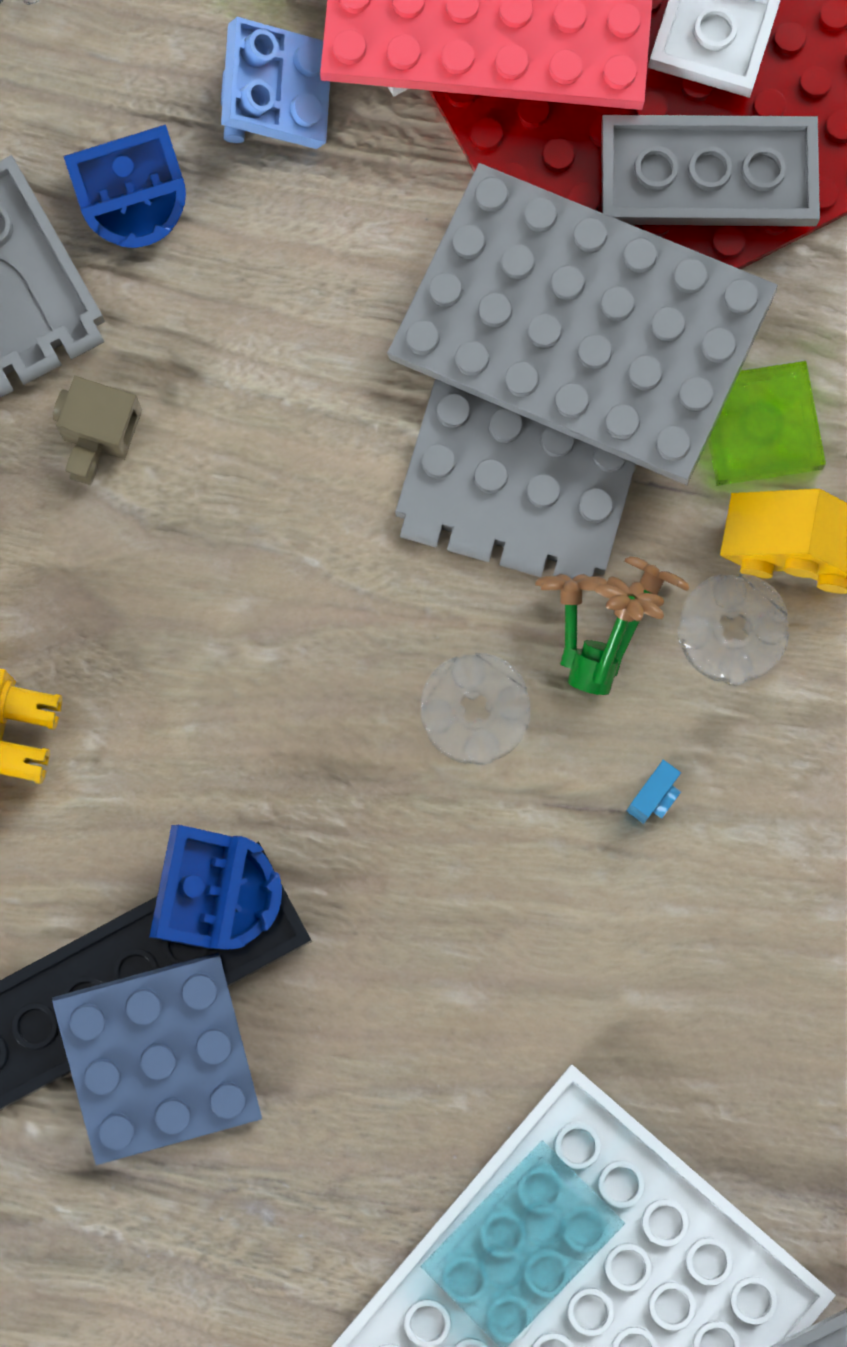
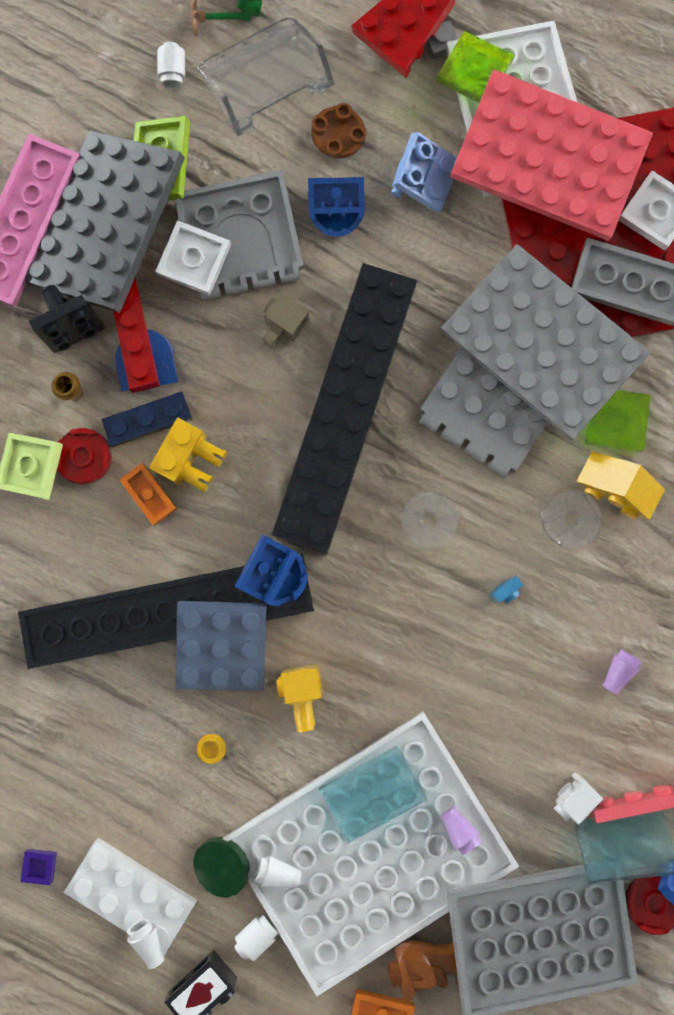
camera: 20 degrees right, 5 degrees up
(94, 56) = (338, 131): none -> dark orange dish
(196, 1259) = (211, 748): none -> yellow plate
(256, 556) = (344, 409): none -> black brick
(328, 1089) = (299, 689): none -> yellow brick
(598, 662) = (497, 516): plant -> none
(705, 1260) = (461, 832): none -> lavender cone

